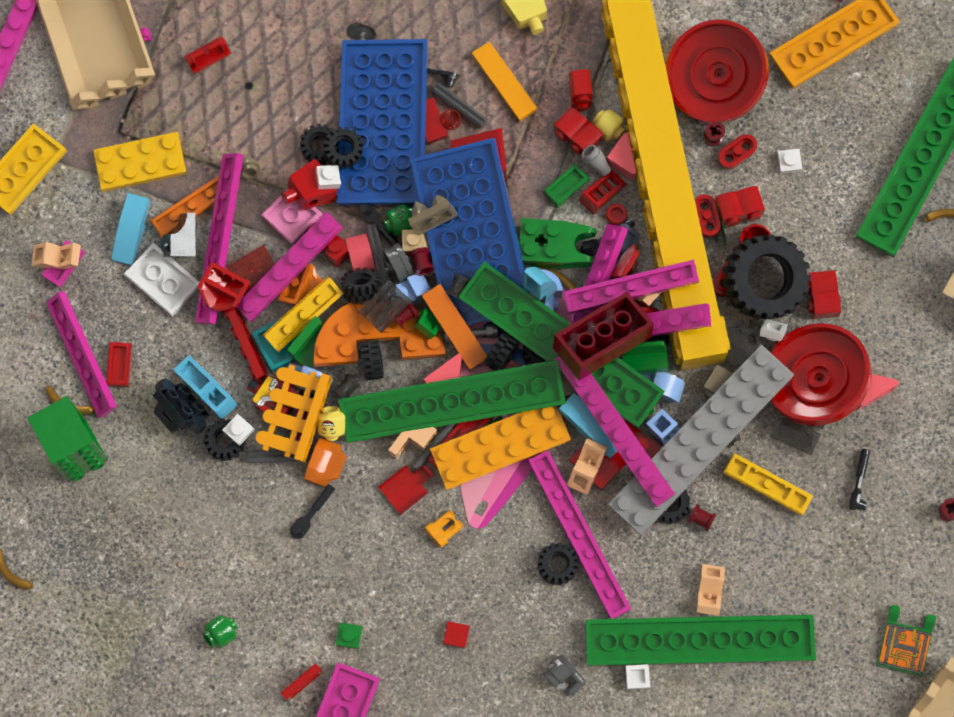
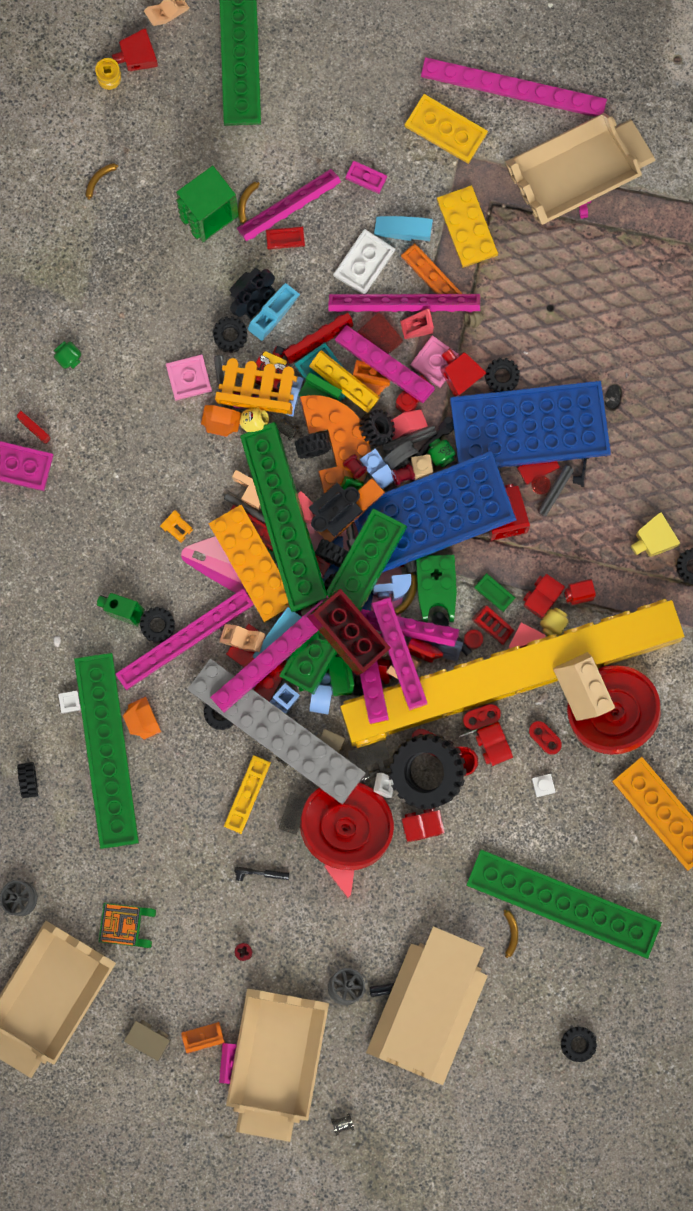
camera: 80 degrees right, 5 degrees up
(54, 256) = (369, 169): light nougat slope -> none
(182, 240) = (397, 271): arch -> none
(208, 55) = (572, 268): red hinge -> none
(222, 288) = (357, 310): red slope -> none
(238, 430) = (237, 343): white plate -> none
(247, 227) = (417, 325): none -> coral slope
(267, 494) = (188, 377): none -> bright pink tile
(303, 524) = (166, 410): black piece -> none
(328, 177) = (469, 385): white plate -> none
(343, 135) = (489, 402): black tyre -> none
(349, 635) = (77, 460): green plate -> none
(384, 306) = (355, 451): clear smoke plate -> none
(405, 488) = (207, 491): red piece -> none
(426, 218) = (438, 471): dark tan tile -> none
(452, 340) = (335, 509): none -> black piece
(456, 634) = (88, 548): red tile -> none
(458, 285) = (385, 508): clear smoke bush -> none
(504, 81) = (583, 527): light orange tile -> none
(539, 283) = (392, 574): medium azure slope -> none
(540, 594) = (121, 608): none -> green torso
(560, 671) = (67, 638): dark grey piece -> none
(595, 159) = (518, 613): light grey cone -> none
(666, 595) = (141, 719): none -> orange slope
(693, 92) = (584, 687): none -> tan slope
(702, 517) = (211, 741): dark red bush -> none
(710, 589) = (150, 755): light nougat slope -> none
(711, 128) = (555, 710): dark red bush -> none

